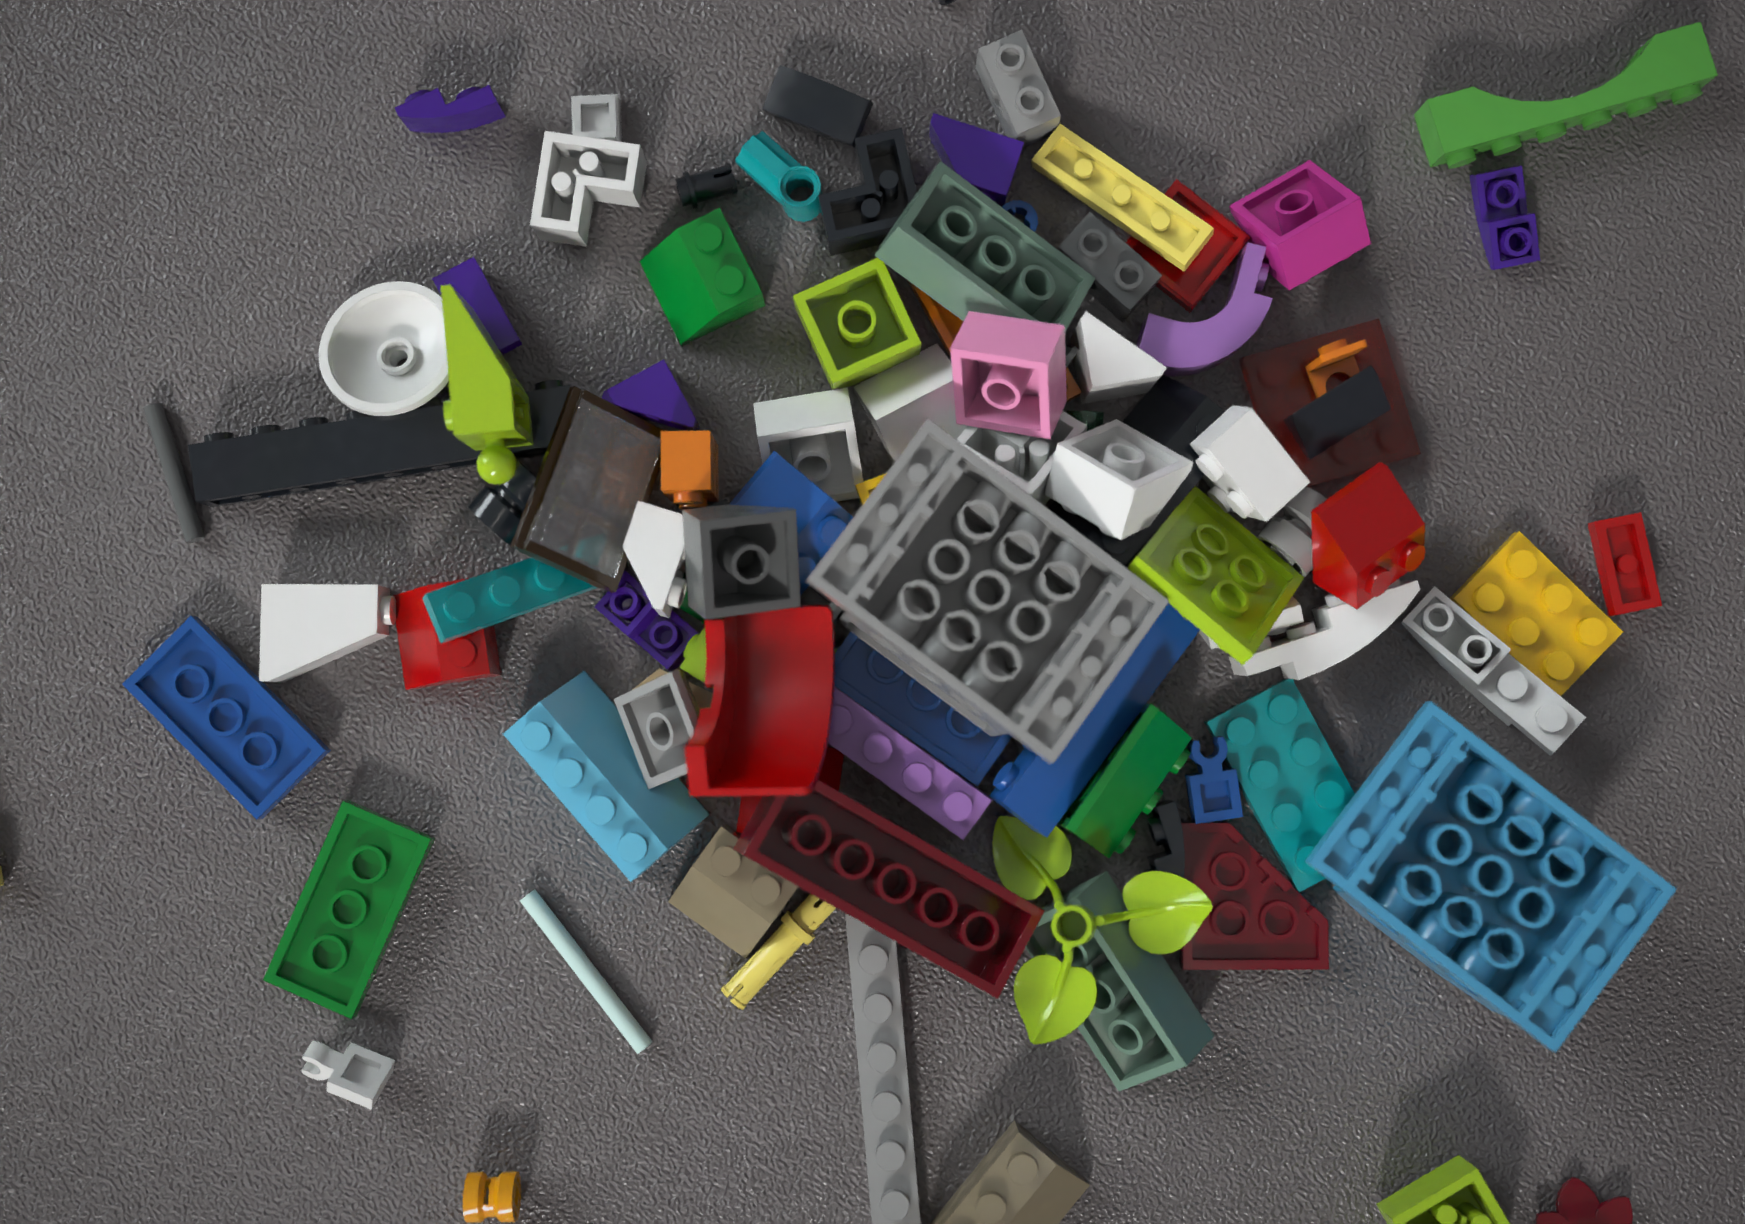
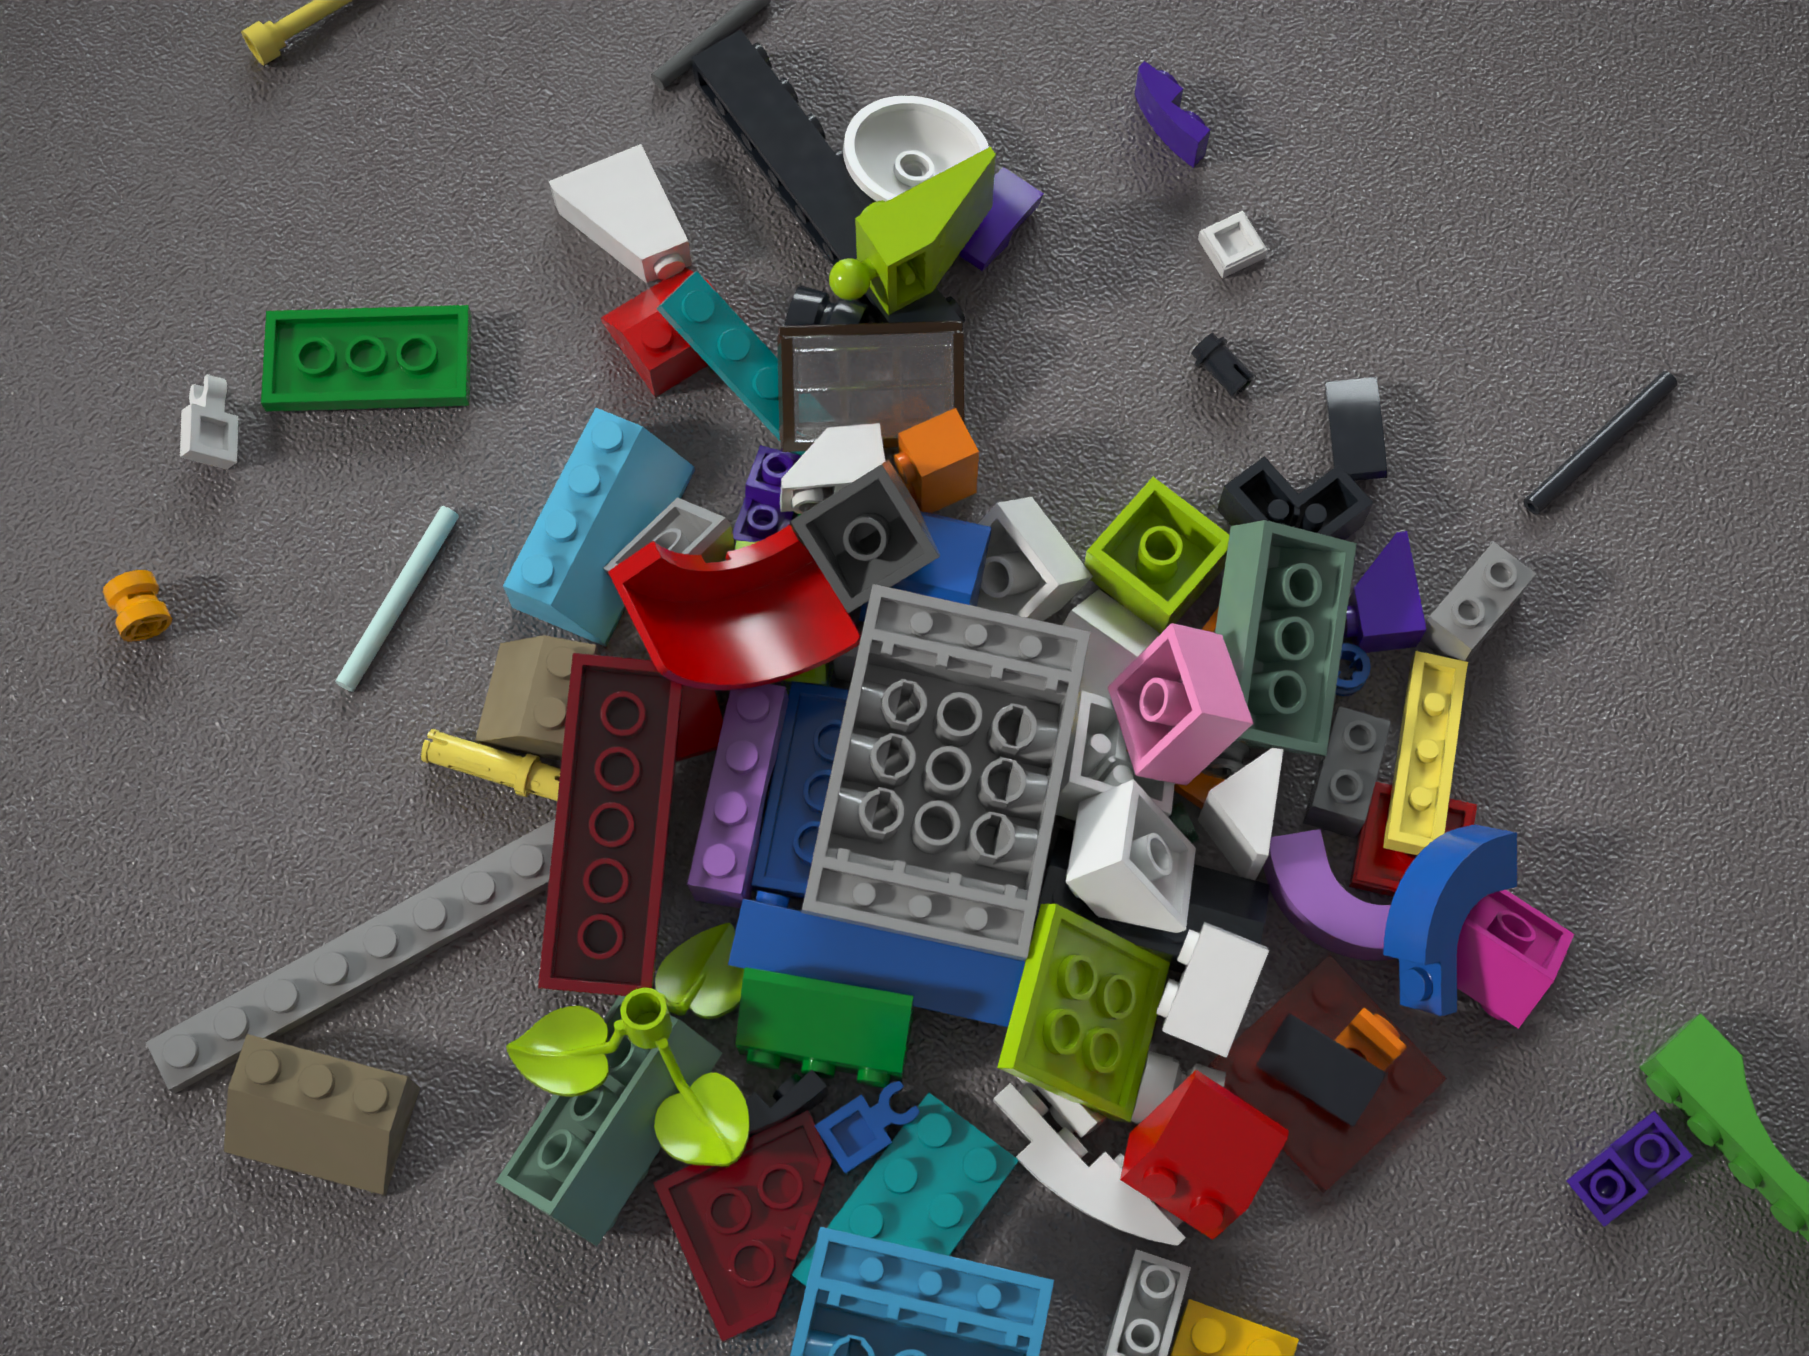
camera: 65 degrees right, 15 degrees down
(226, 717) = (502, 177): blue plate -> none
(576, 174) = (1161, 241): white brick -> none
(654, 397) = (993, 407): dark purple slope -> none
(702, 278) = (1132, 401): green slope -> none
(780, 175) = (1269, 421): teal piece -> none
(1256, 254) = (1433, 905): none -> blue arch

